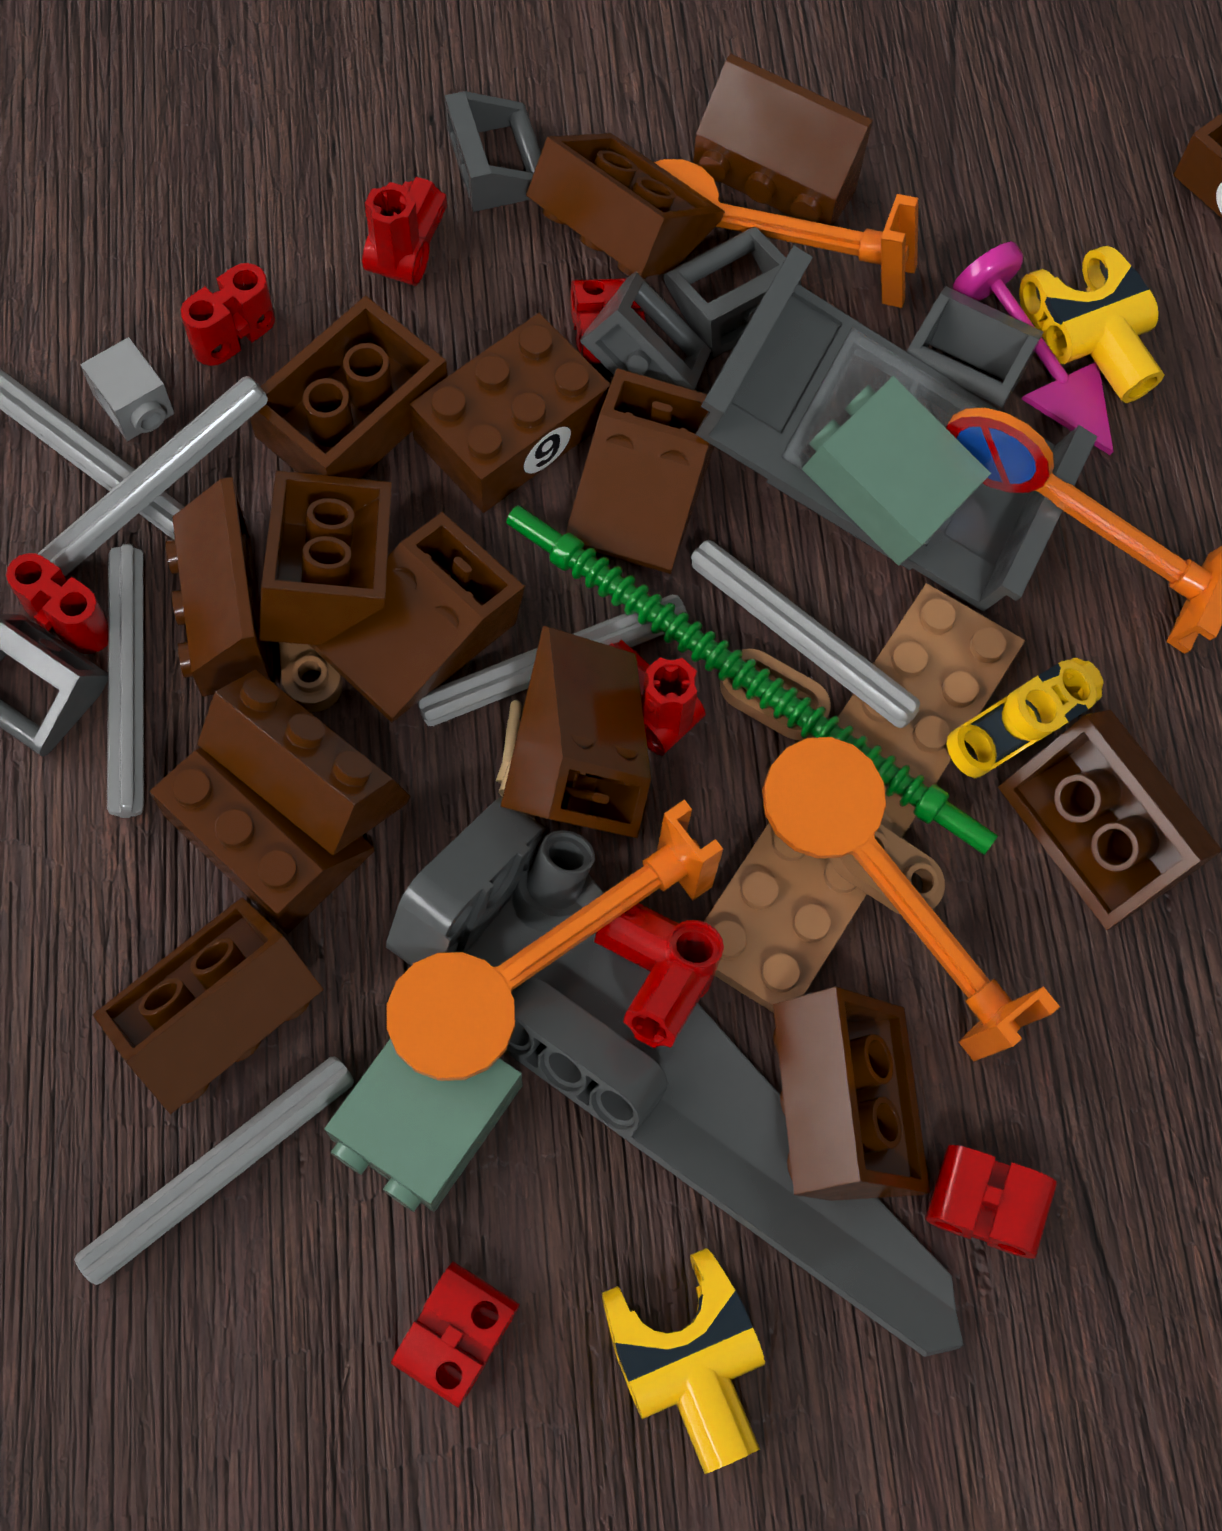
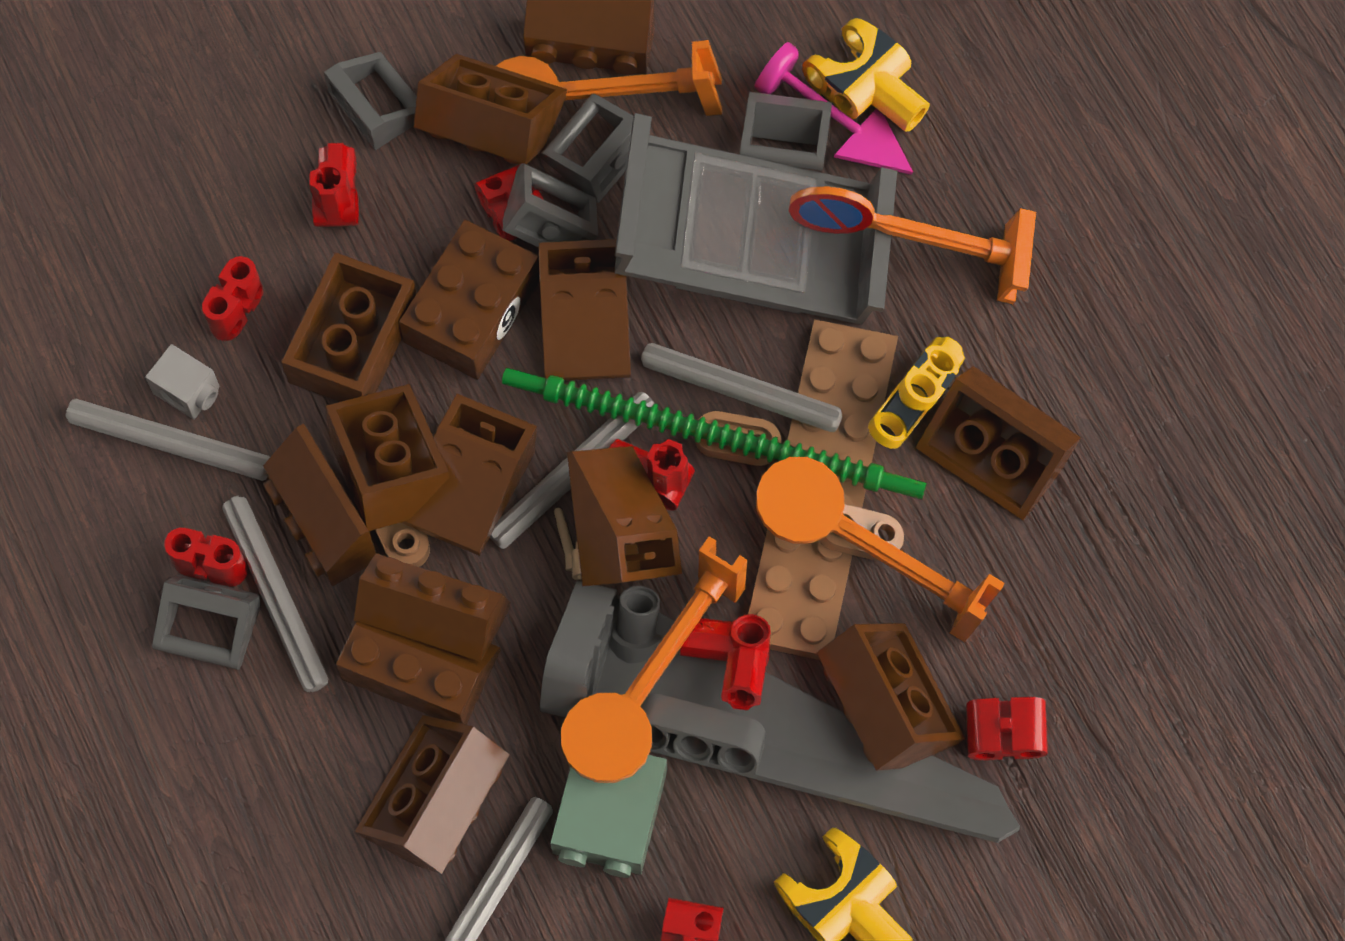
camera: 15 degrees left, 0 degrees up
(155, 475) = (237, 439): light grey axle -> none
(893, 468) = (763, 248): sand green brick -> none

